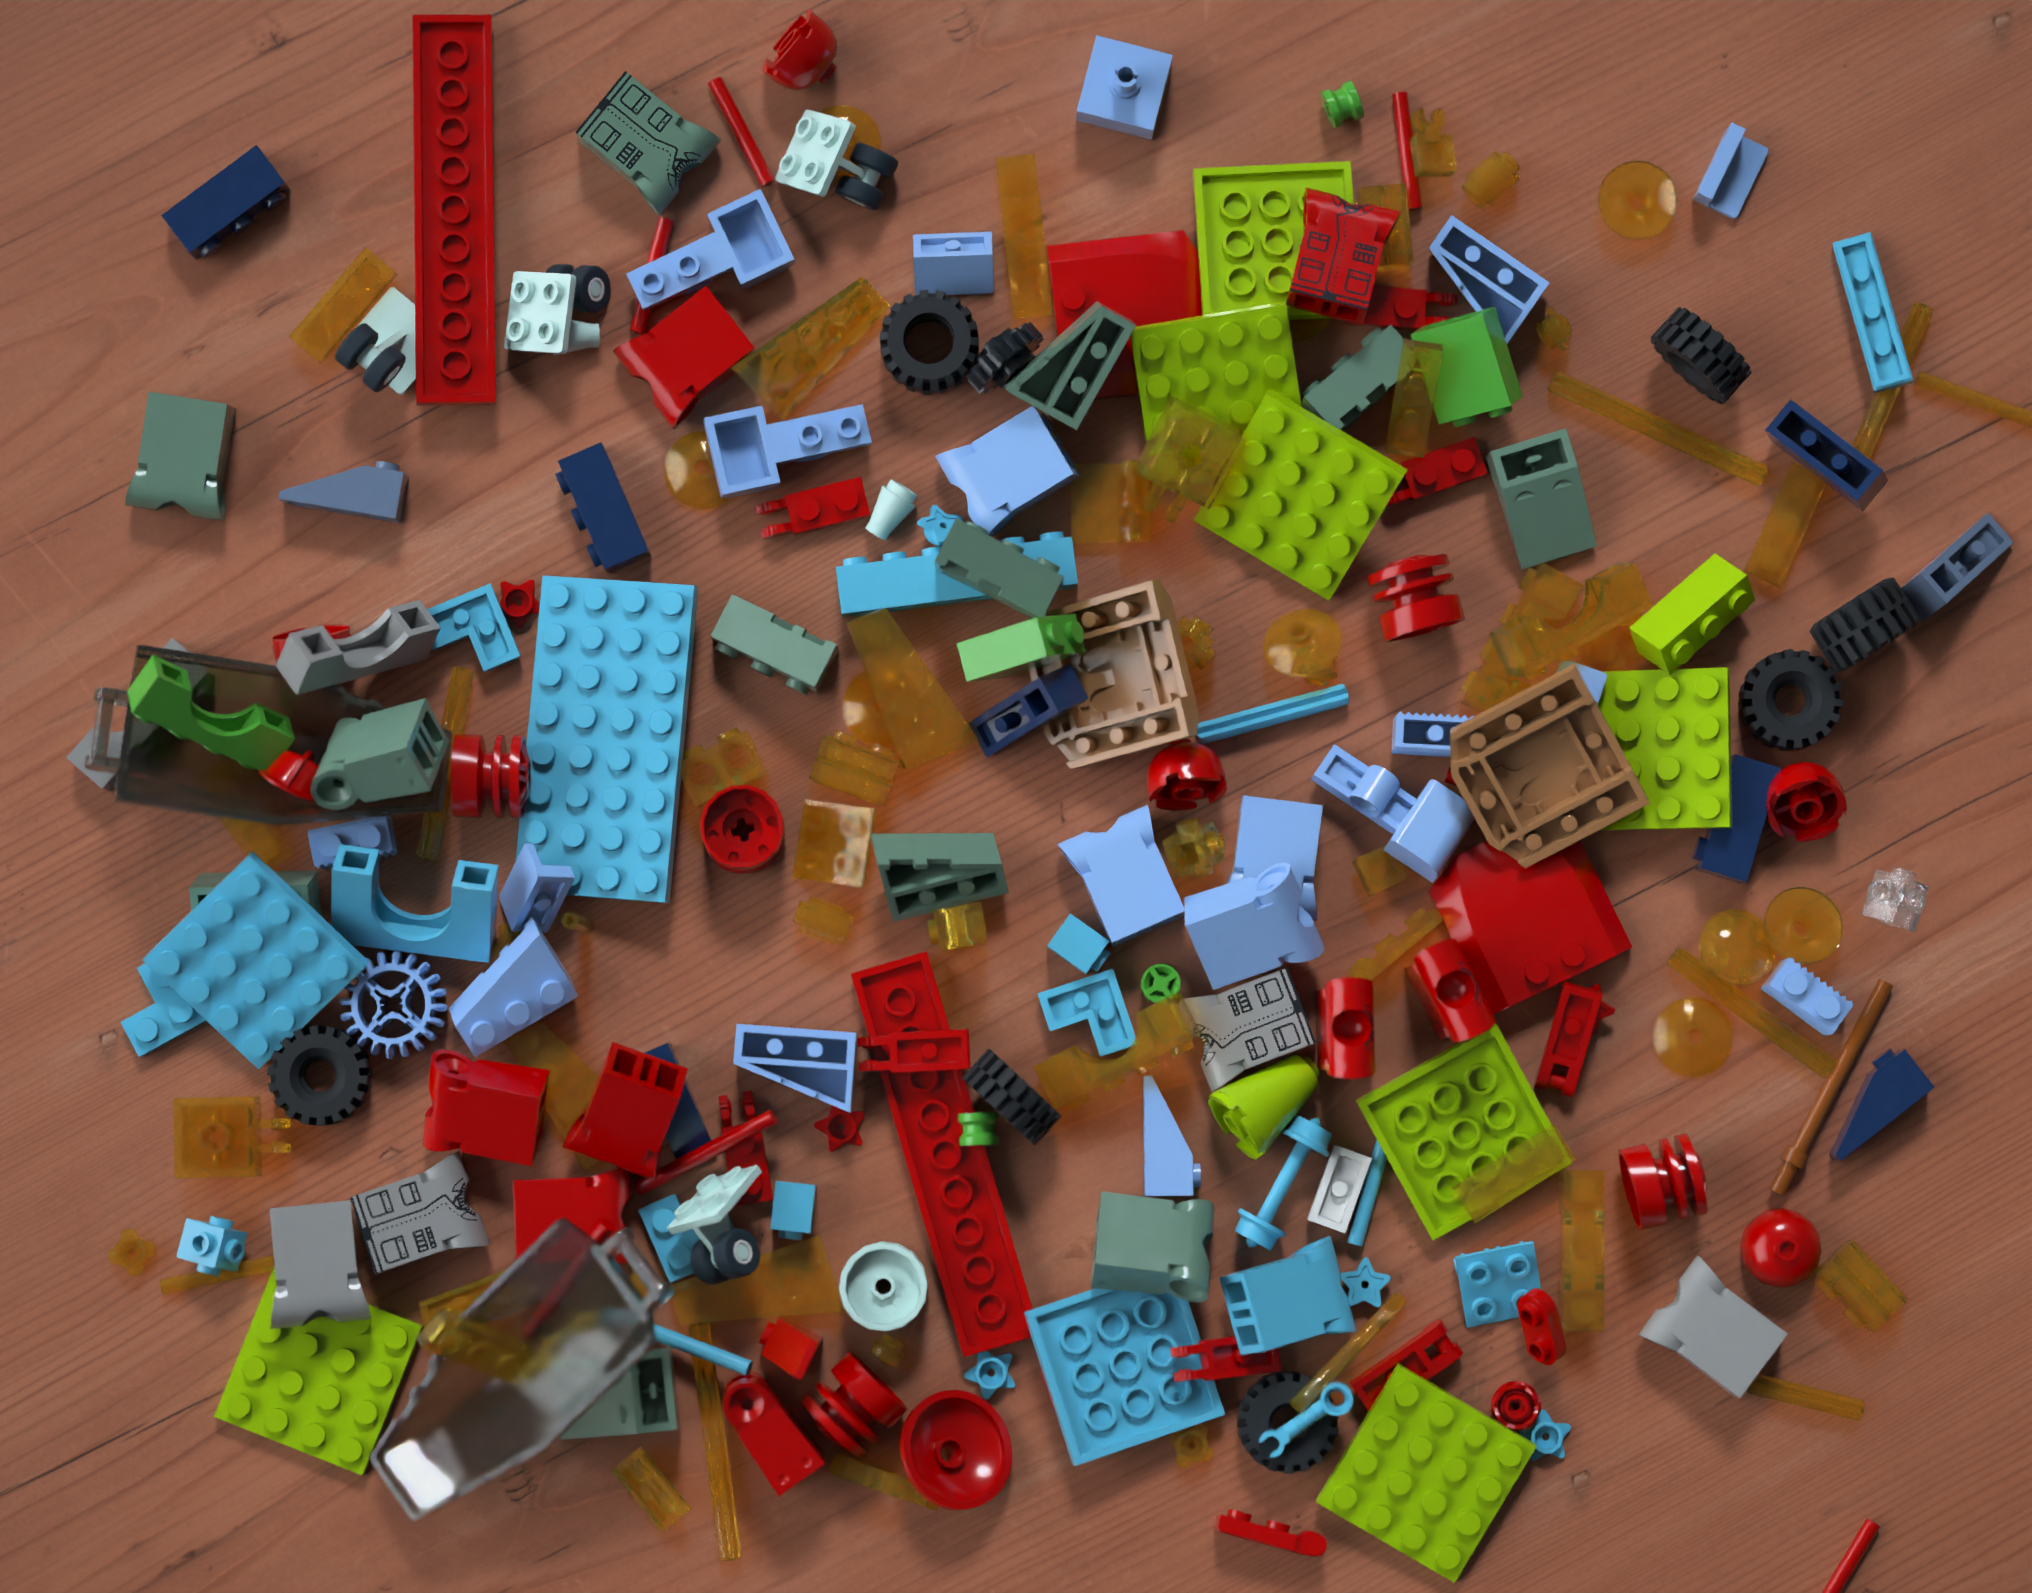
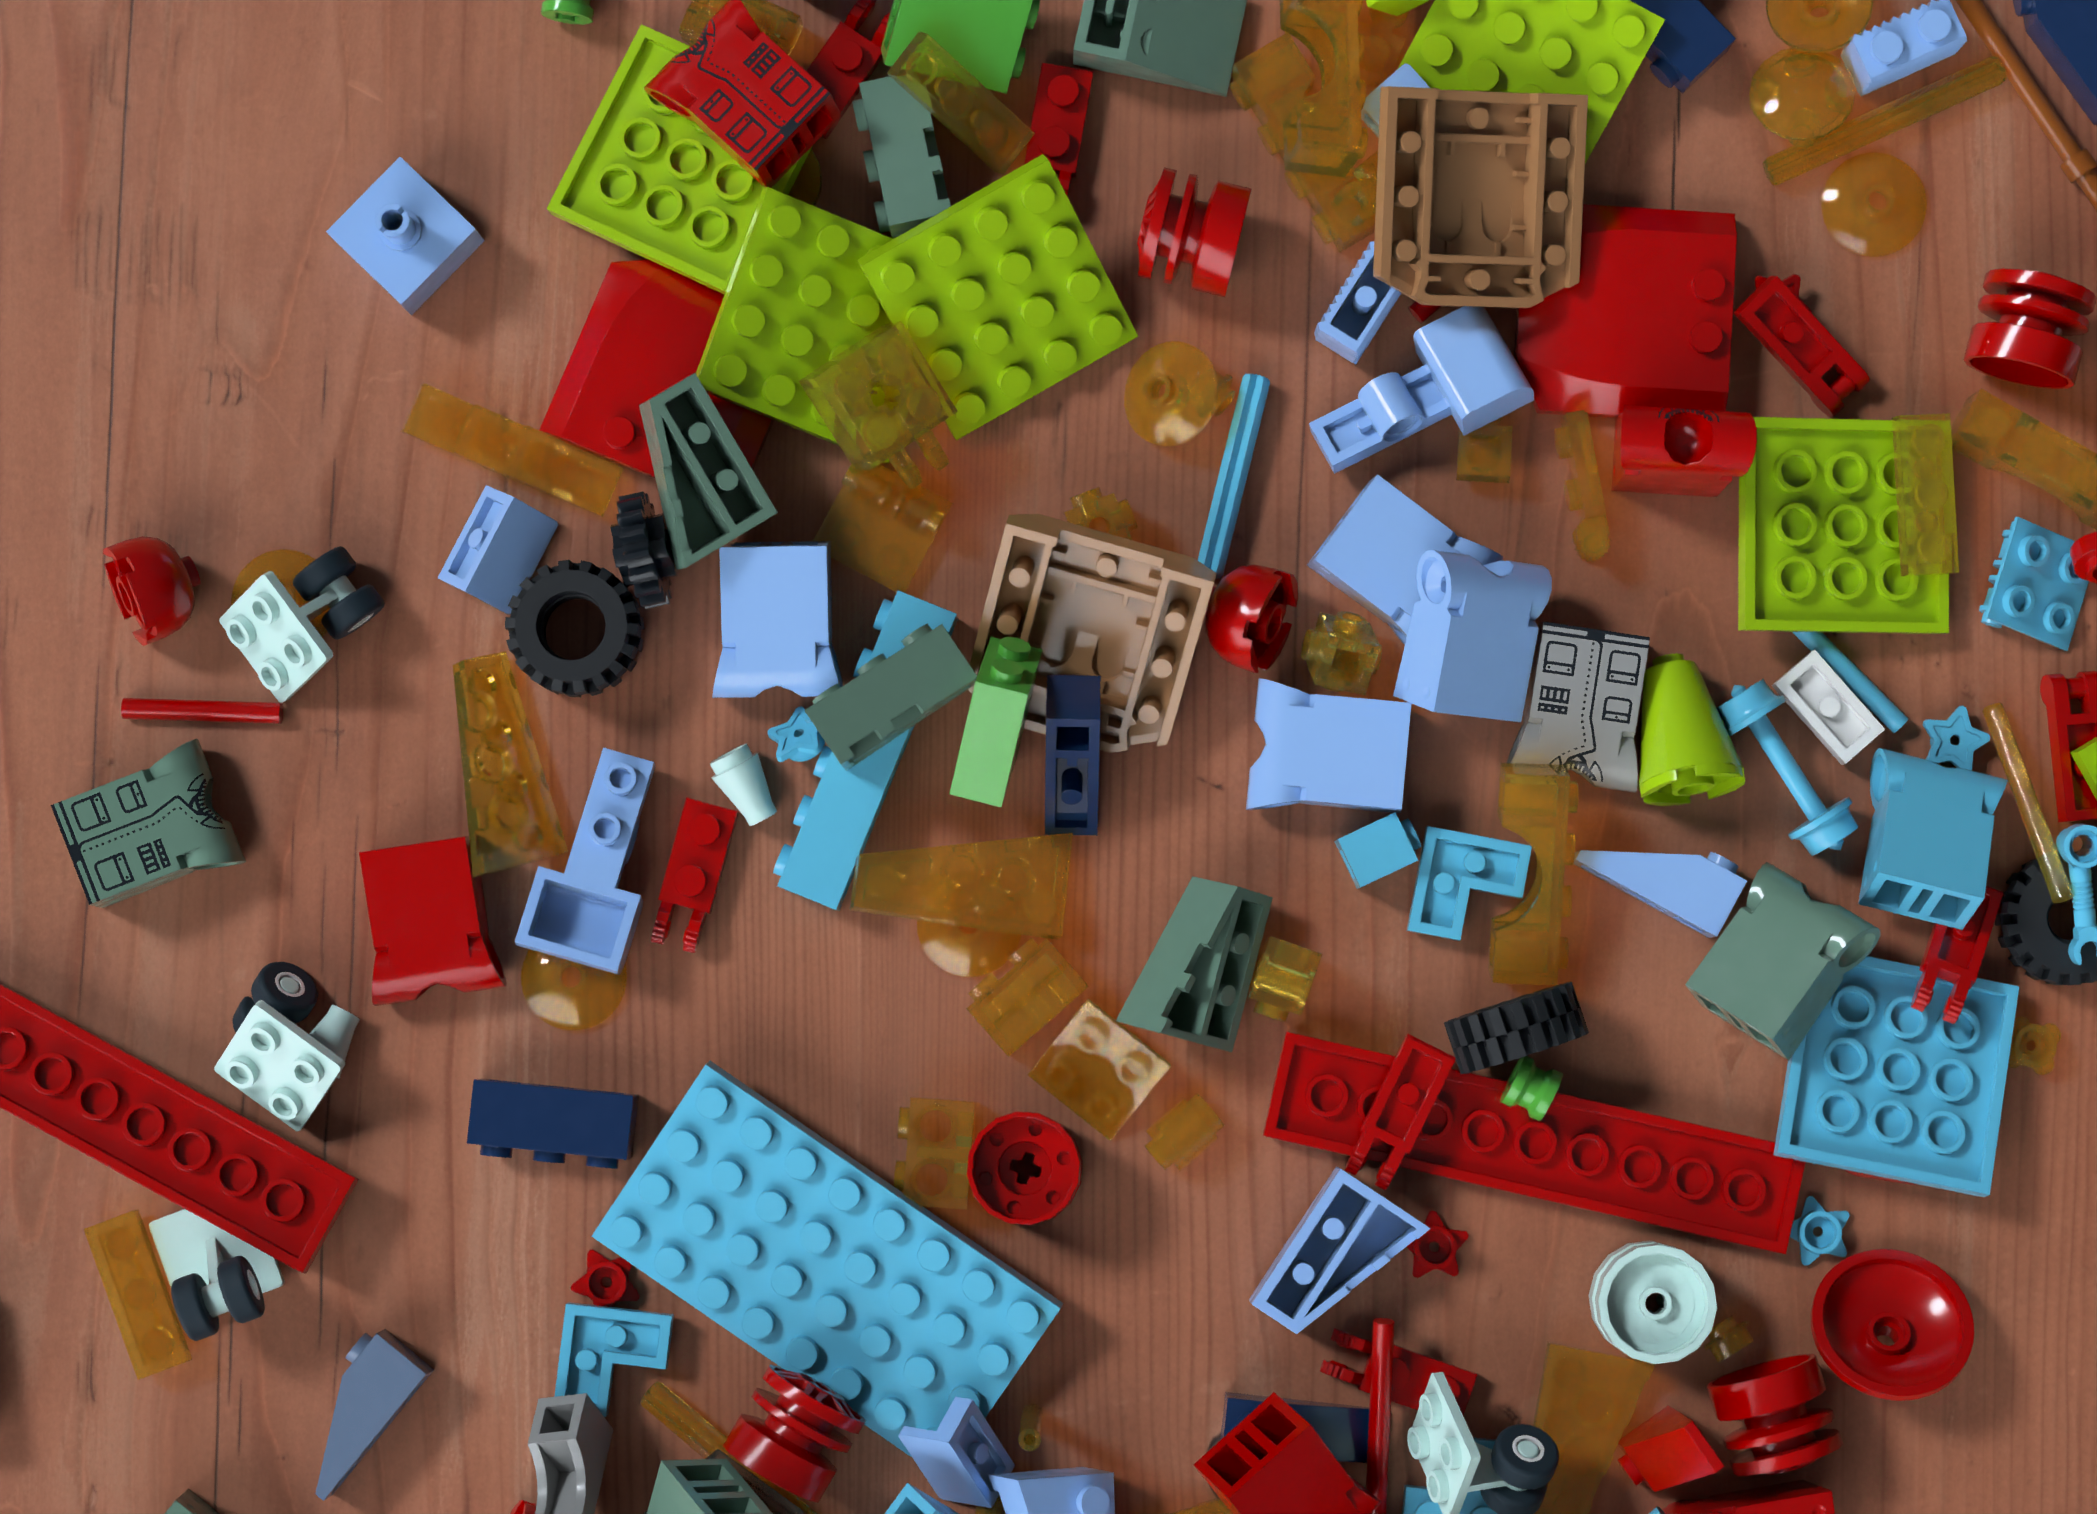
camera: 55 degrees left, 0 degrees up
(657, 250) = (311, 910): red bar -> none
(743, 241) = (332, 779): light blue plate -> none
(774, 645) = (827, 1010): sand green wedge -> none
(793, 1209) = (1502, 1357): medium azure brick -> none
(877, 1478) = (1871, 1436): clear yellow beam -> none
(1164, 980) = (1483, 771): bright green wheel -> none
(1346, 1028) = (1656, 595): red piece -> none

